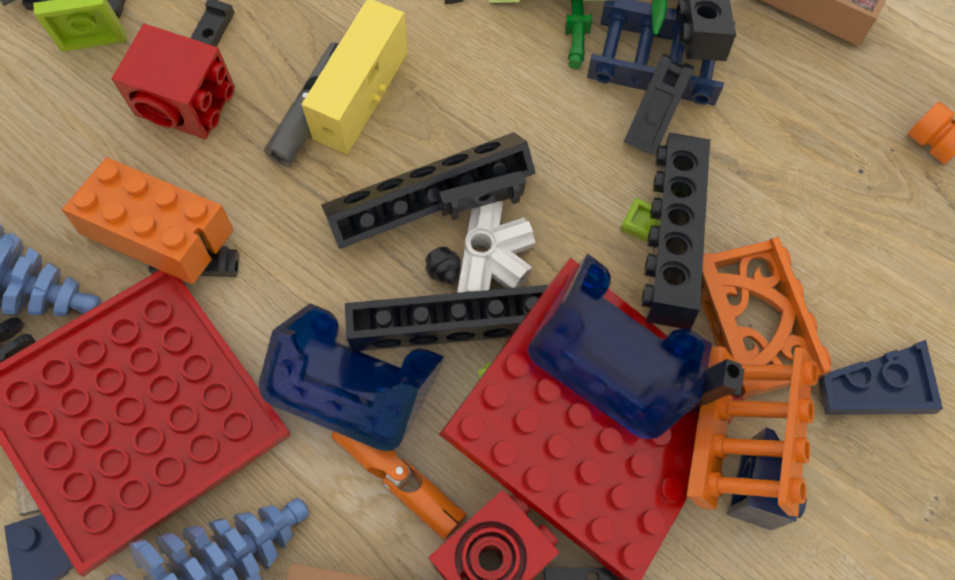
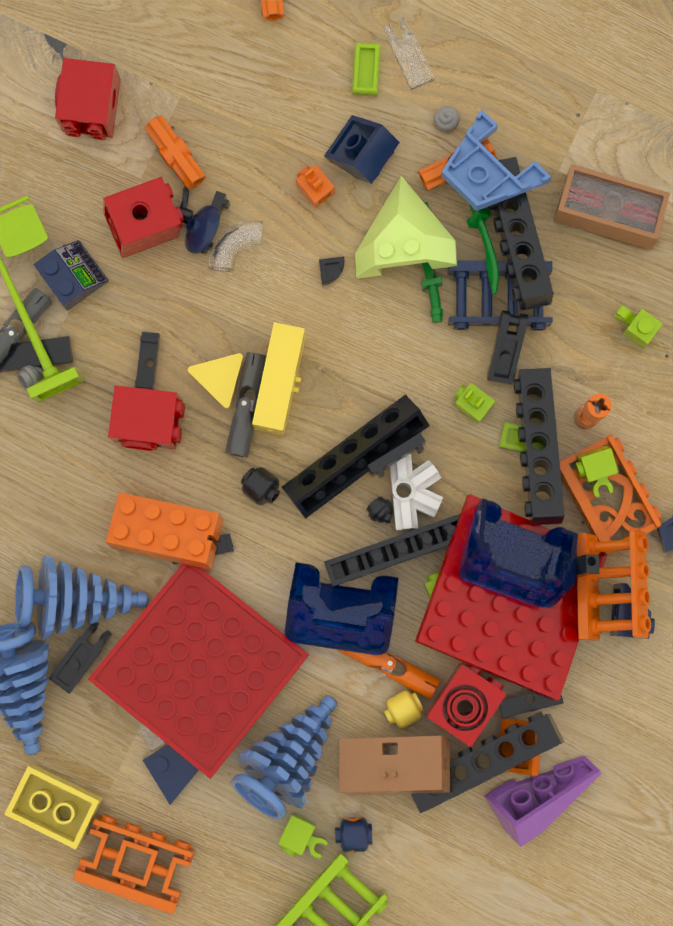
camera: 10 degrees left, 15 degrees up
(285, 61) = (219, 377): none -> light yellow piece
(295, 199) = (260, 486): none -> black head
(402, 546) = (403, 709): none -> light yellow head
(599, 163) = (473, 402): none -> lime brick
(755, 269) = (596, 466): none -> lime brick
(766, 182) = (593, 411): none -> orange piece
(833, 123) = (640, 327): none -> lime brick

